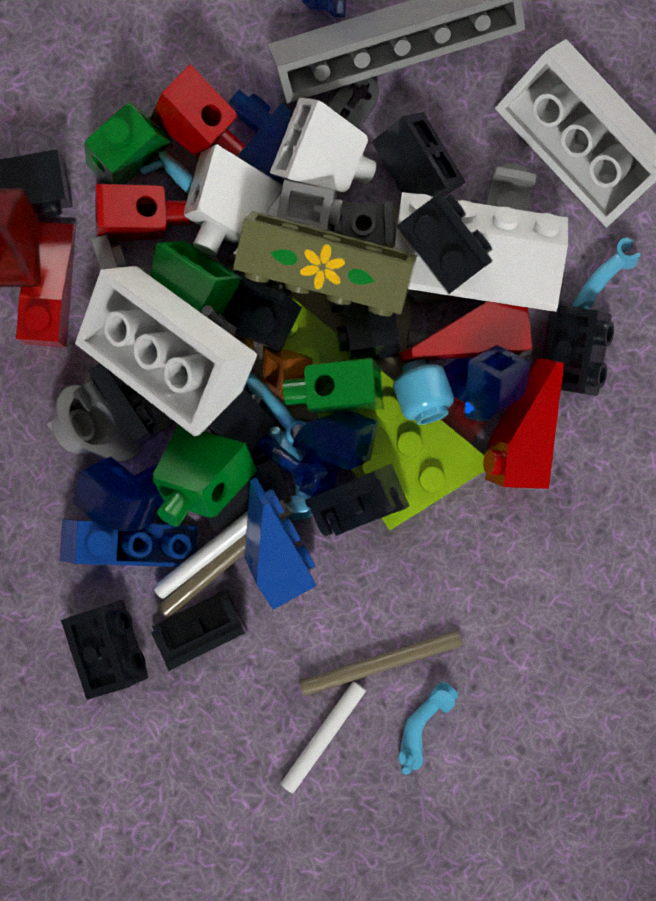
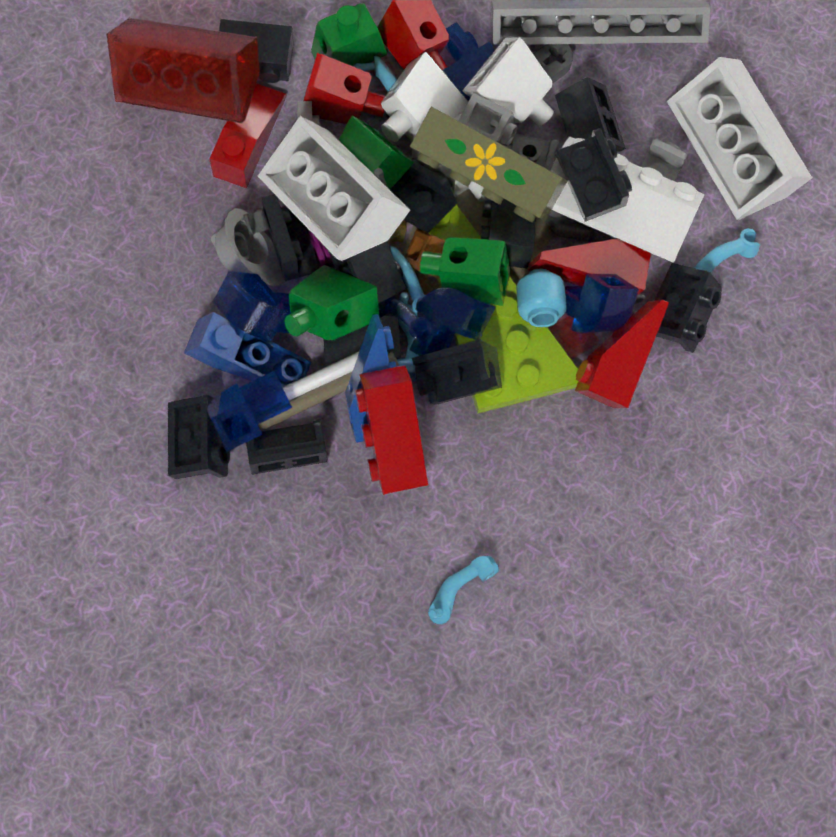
camera: 15 degrees right, 15 degrees down
(139, 613) = (242, 408): none -> clear blue brick
(306, 593) = (392, 429): none -> red brick
(323, 737) = (366, 571): white bar -> none
(380, 663) = (437, 522): dark tan bar -> none

